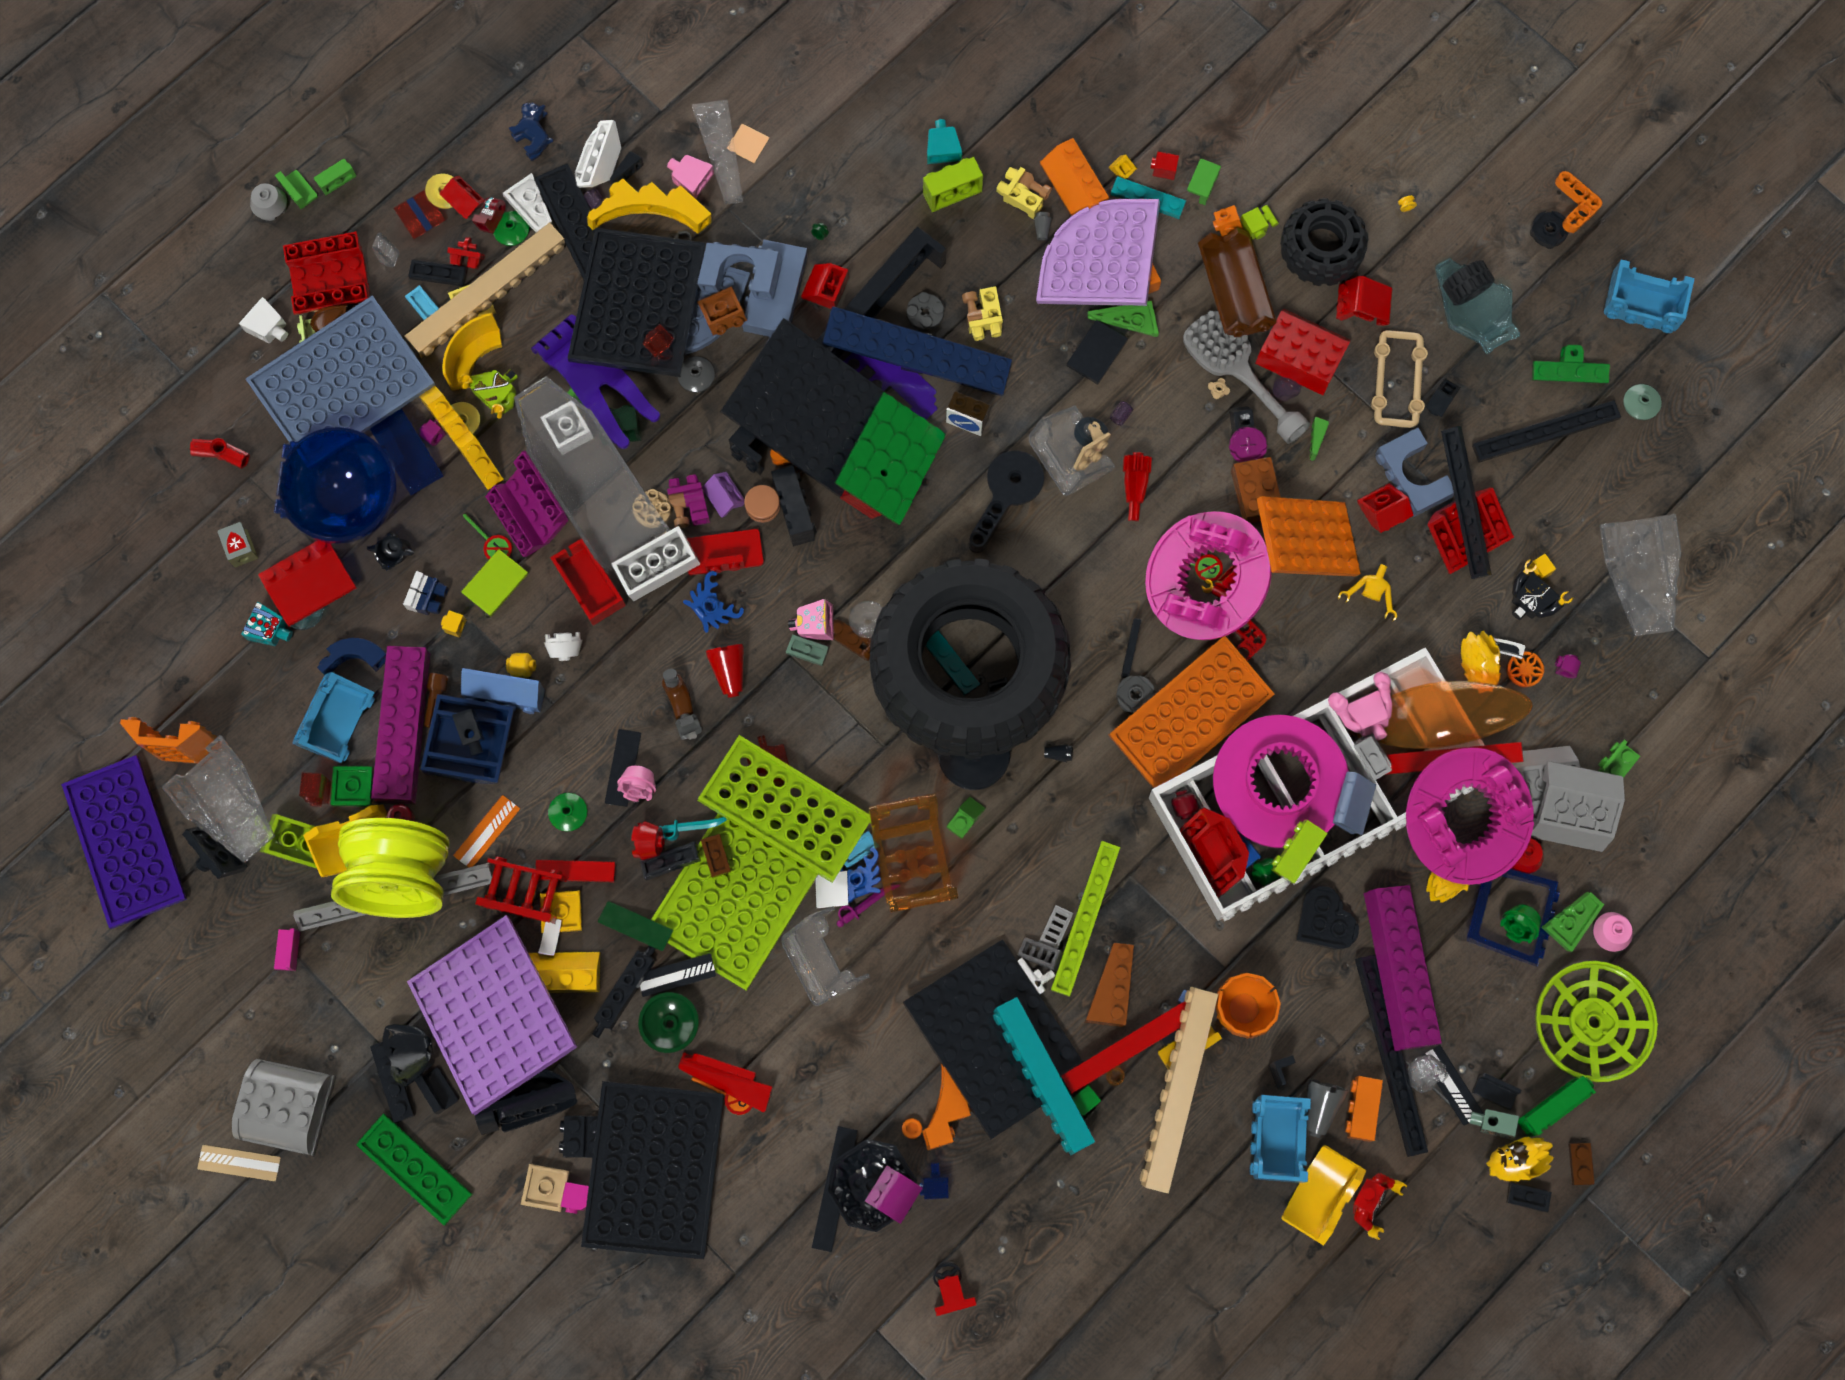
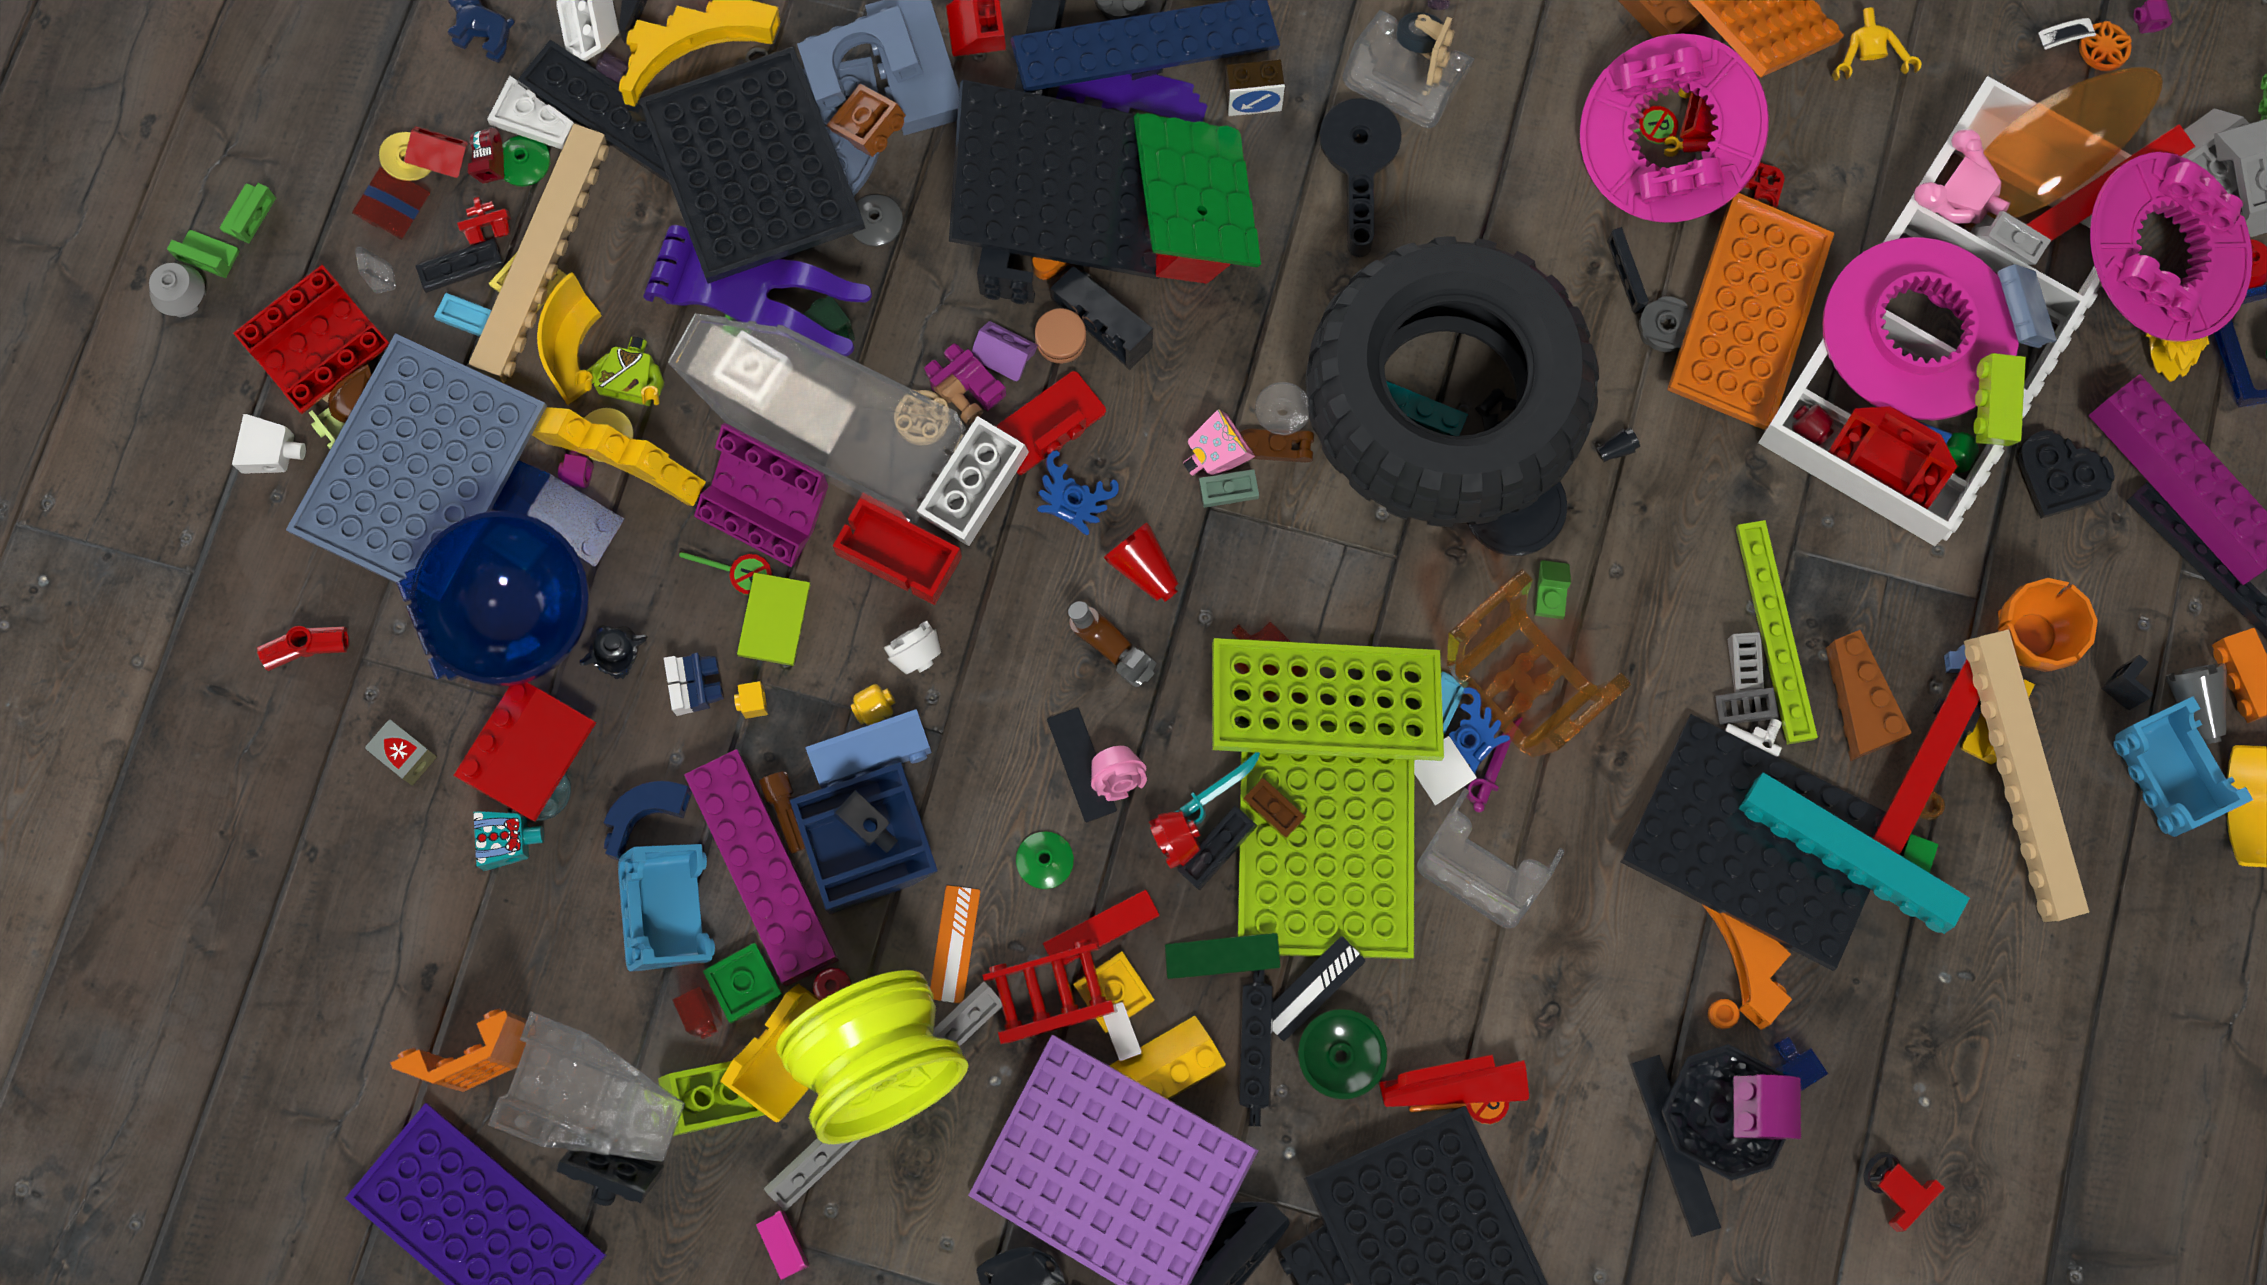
camera: 30 degrees left, 0 degrees up
(657, 340) = (811, 195): clear red panel -> none
(1137, 471) = (1509, 64): red piece -> none
(1481, 658) = (2053, 59): yellow head -> none

